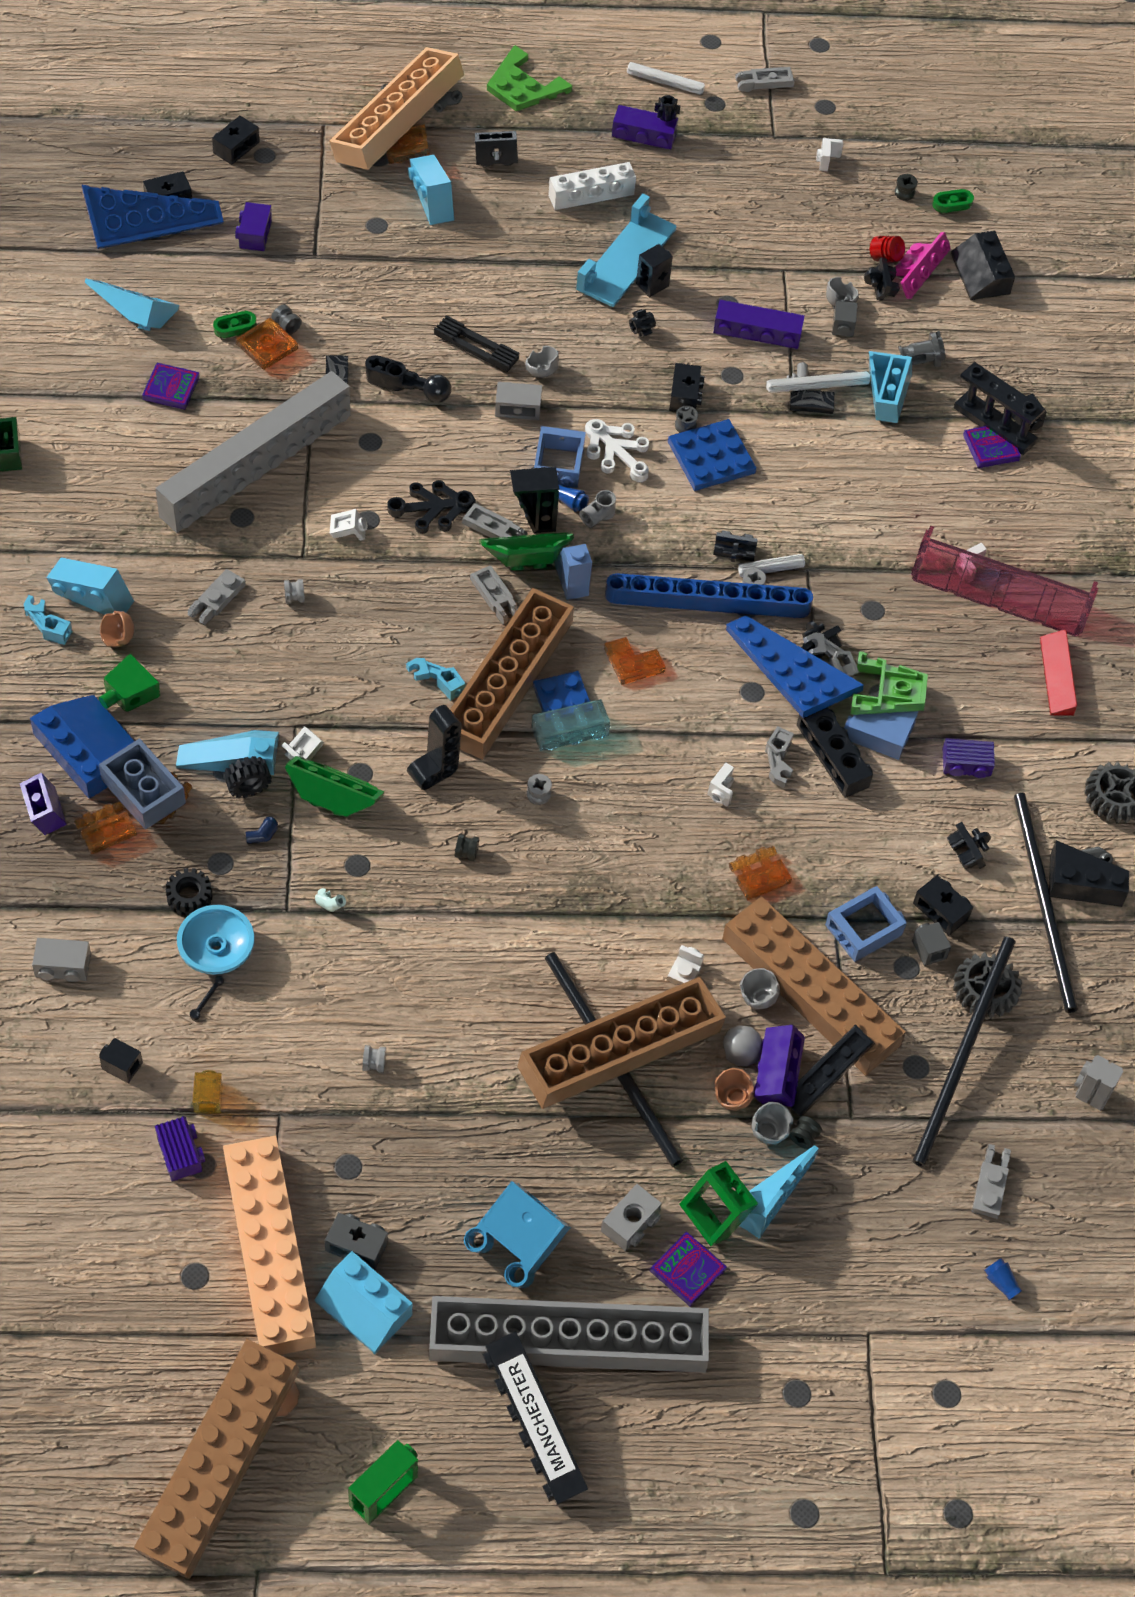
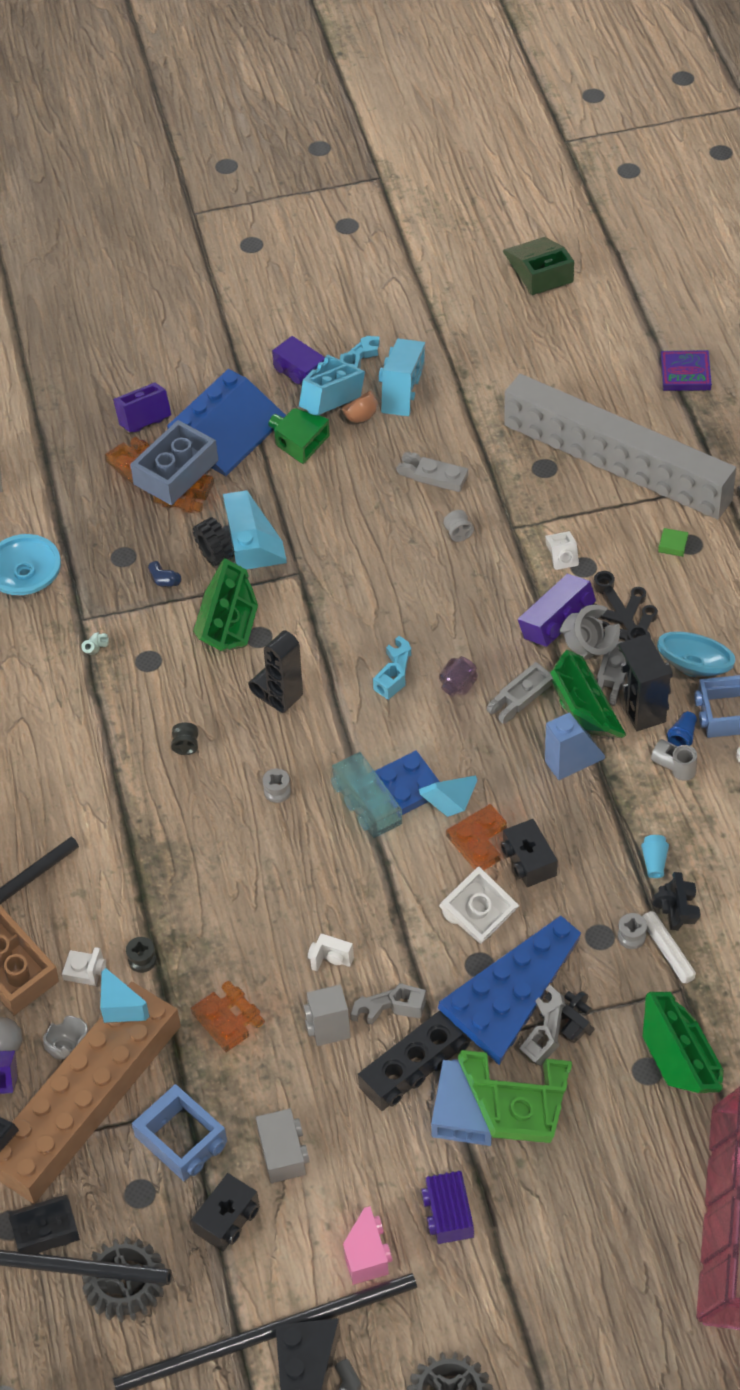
camera: 85 degrees right, 5 degrees down
(33, 666) = (295, 359): none -> dark purple brick
(87, 642) = (330, 386): none -> medium azure wedge
(188, 879) = (76, 527): black tyre -> none
(303, 745) = (266, 579): white bracket -> none
(367, 450) = (673, 542): none -> bright green tile
(421, 543) = (545, 617): none -> dark purple brick
(459, 528) = (586, 634): none -> light grey helmet
(466, 631) = (458, 676): none -> clear purple head
(495, 464) = (695, 654): none -> medium azure dish
(510, 670) = (413, 720): medium nougat brick -> none
(590, 663) = (450, 795): none -> medium azure slope
(663, 628) = (529, 853): none -> black brick
(681, 925) = (145, 959): none -> pearl dark grey wheel
(687, 549) = (655, 854): none -> medium azure cone
(704, 674) = (478, 905): none -> white slope
(708, 595) = (594, 900): blue beam -> none
(752, 929) = (119, 1001): none -> medium azure slope
(790, 793) = (327, 1015): none -> light grey brick
(873, 580) = (680, 1046): none -> green wedge
(892, 855) = (281, 1145): none -> light grey brick
(931, 943) = (169, 1207): dark grey brick -> none
(933, 1035) = (44, 1225): none -> black bracket
(972, 855) = (319, 1230): black hips -> none
(992, 817) = (364, 1250): none -> bright pink slope
(1058, 674) = (621, 1300): slope -> none

